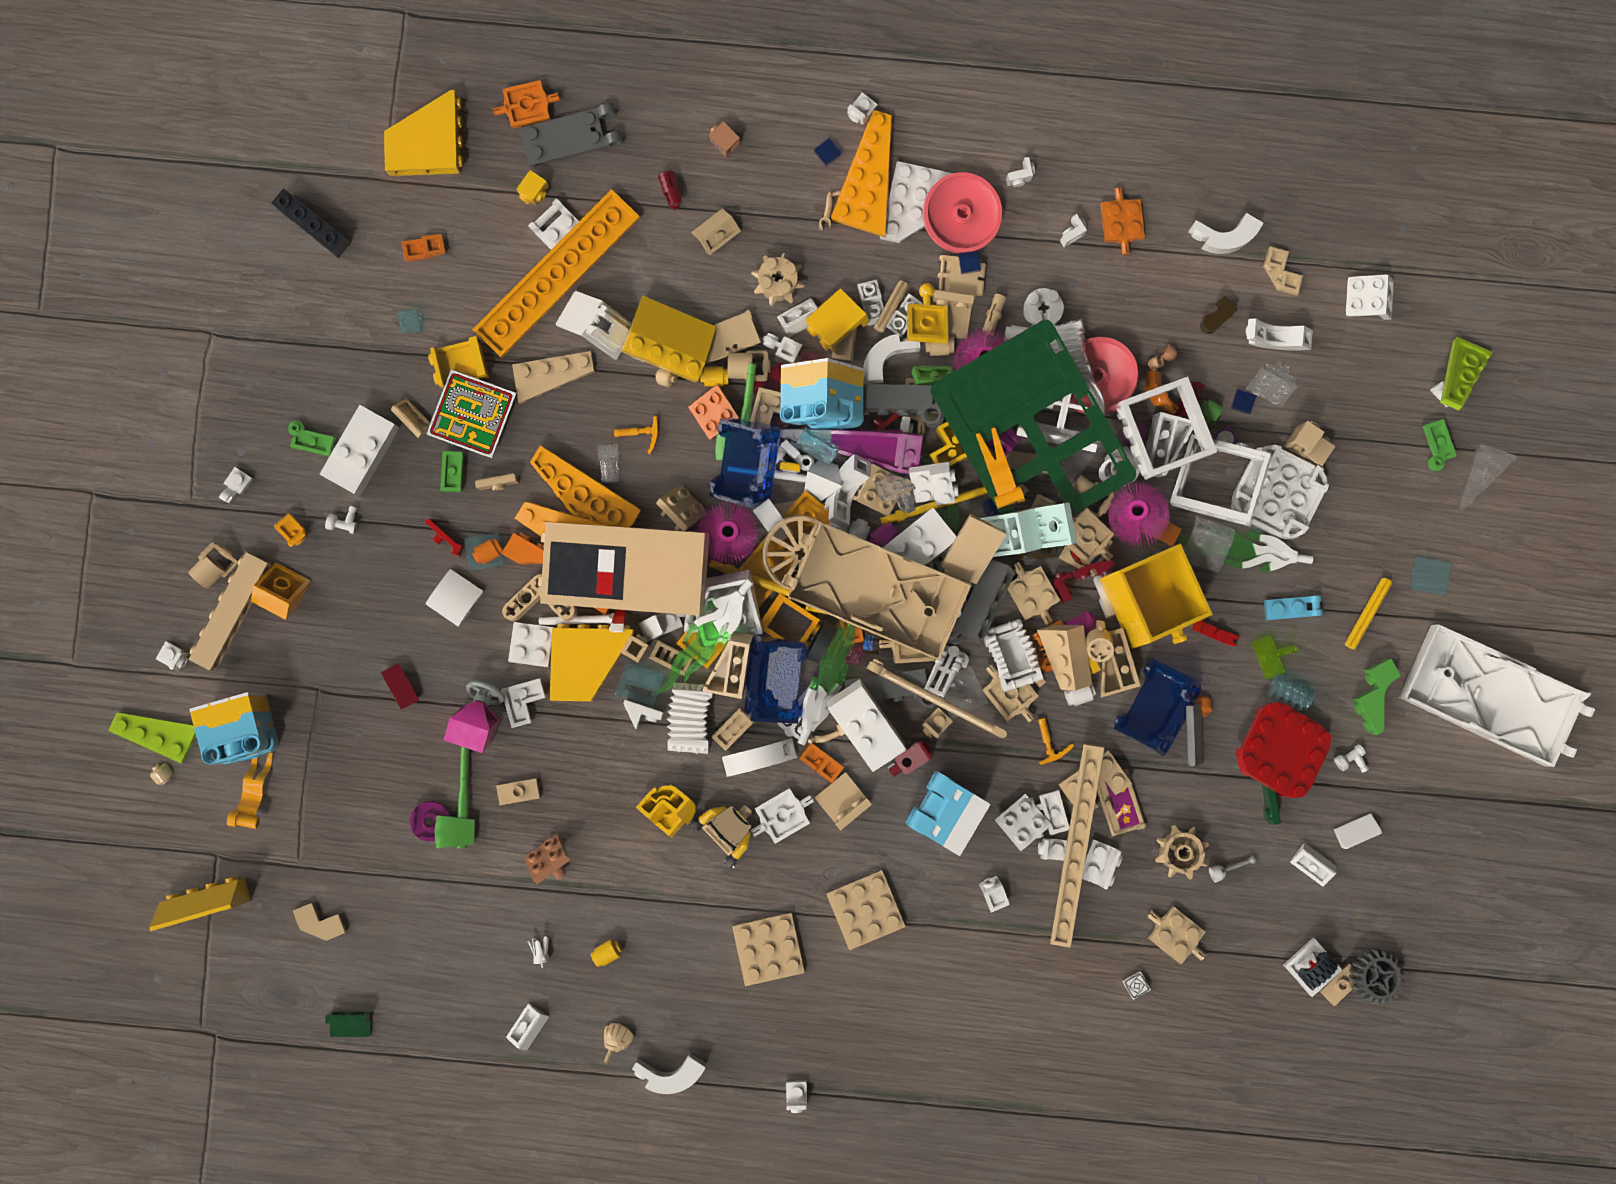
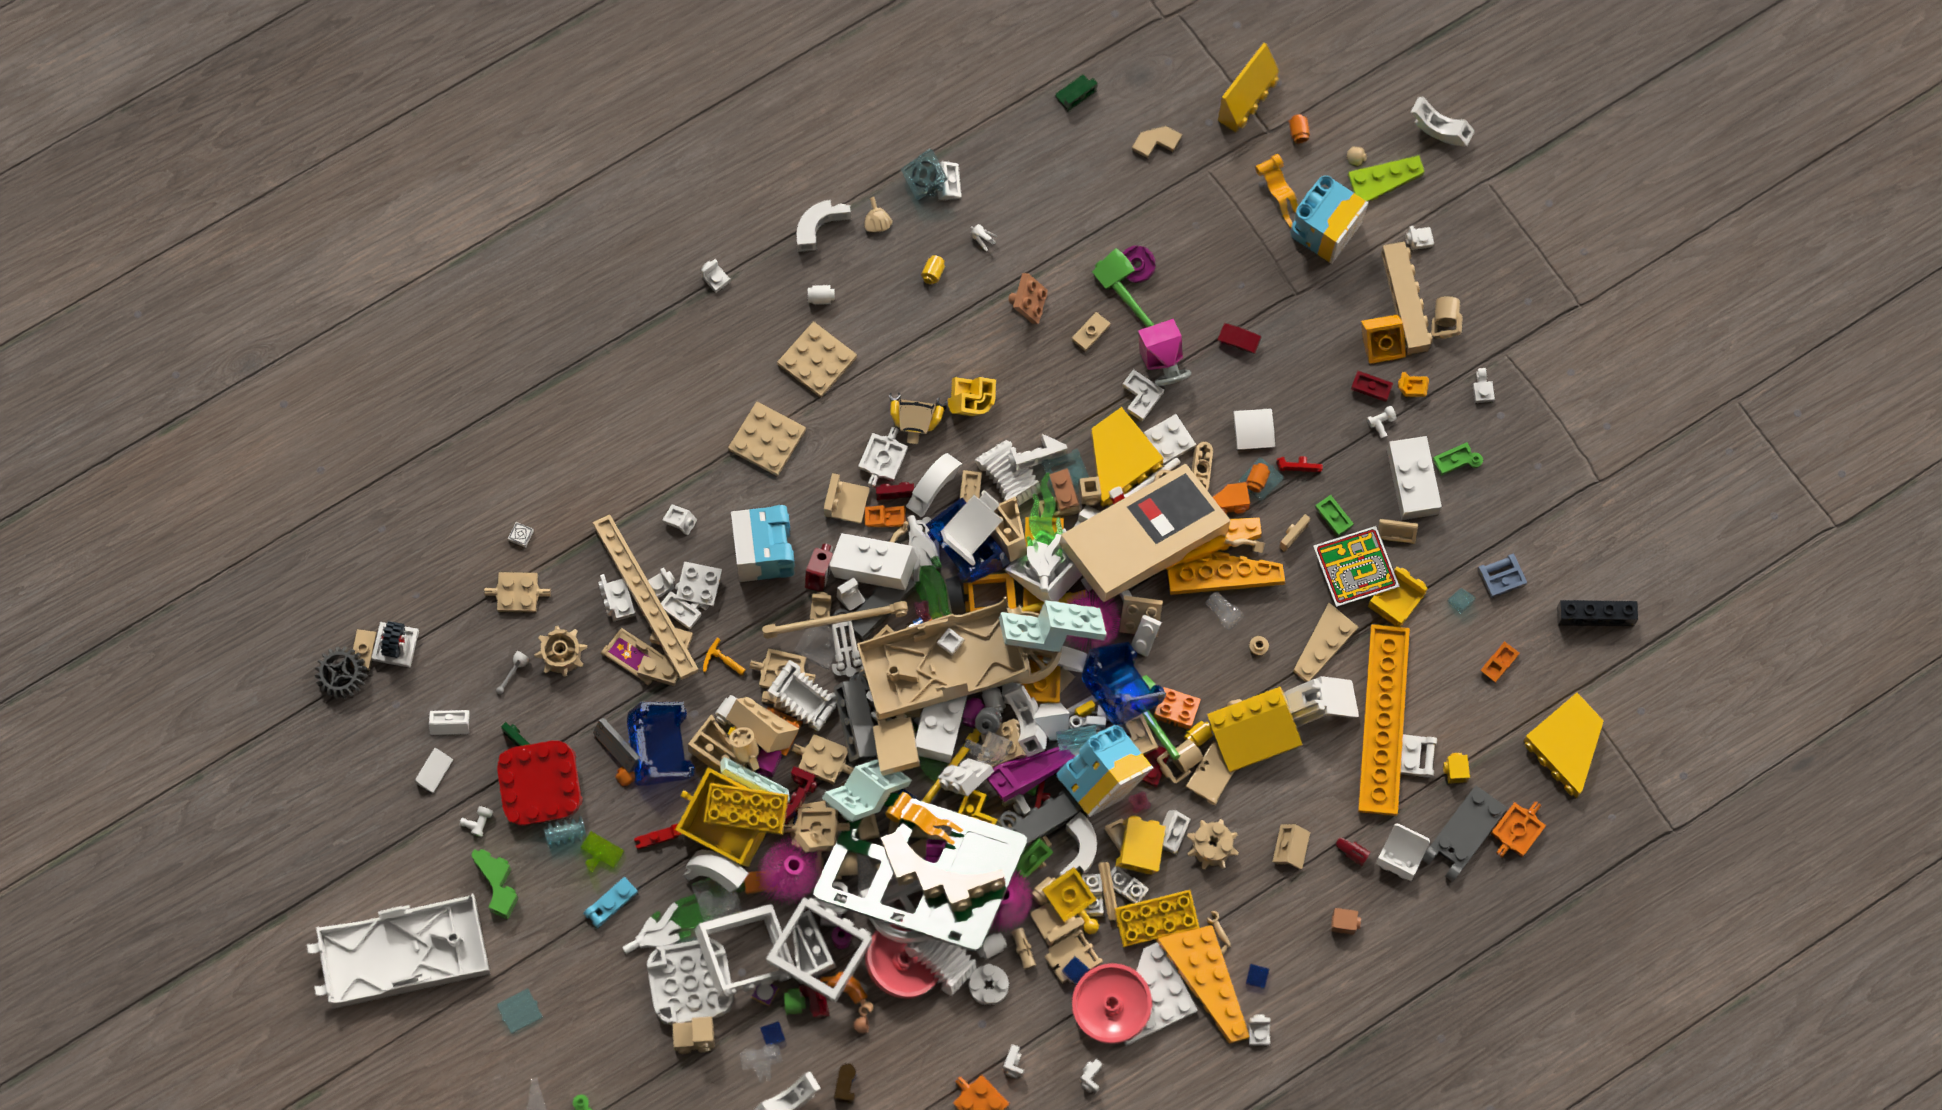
camera: 140 degrees right, 15 degrees down
(66, 740) = (1440, 127): none -> white arch
(188, 835) = (1299, 129): none -> orange brick
(325, 557) = (1371, 386): none -> dark red plate
(362, 309) = (1504, 581): none -> sand blue plate
(537, 495) = (1256, 545): none -> tan piece
(543, 1046) = (924, 175): none -> clear light blue piece
(605, 418) = (1259, 651): none -> tan plate
(635, 154) = (1403, 852): none -> white bracket
(636, 431) = (1216, 657): light orange piece -> none
(656, 665) = (1064, 489): none -> nougat plate
(669, 714) = (1023, 461): none -> white bracket
(691, 489) = (1145, 635): none -> white plate
(720, 1005) = (820, 294): none -> white brick
(766, 686) = (972, 525): none -> white piece
(771, 541) = (1052, 626): none -> light aqua bracket
(787, 348) = (1161, 797): white plate -> none
(789, 773) = (888, 491): none -> dark red plate
(860, 602) = (950, 641): none -> white tile
(870, 256) = (1156, 918): none -> yellow tile
(878, 515) = (988, 720): none -> dark grey head
(906, 712) = (849, 594): none -> white slope
(1046, 435) = (934, 881): none -> arch
(1105, 519) = (812, 841): none -> tan plate
(1110, 611) = (749, 778): none -> light aqua tile
(1146, 582) = (746, 808): none -> yellow tile
(1198, 559) = (717, 867): none -> white arch
(1368, 613) = (547, 941): yellow axle -> none

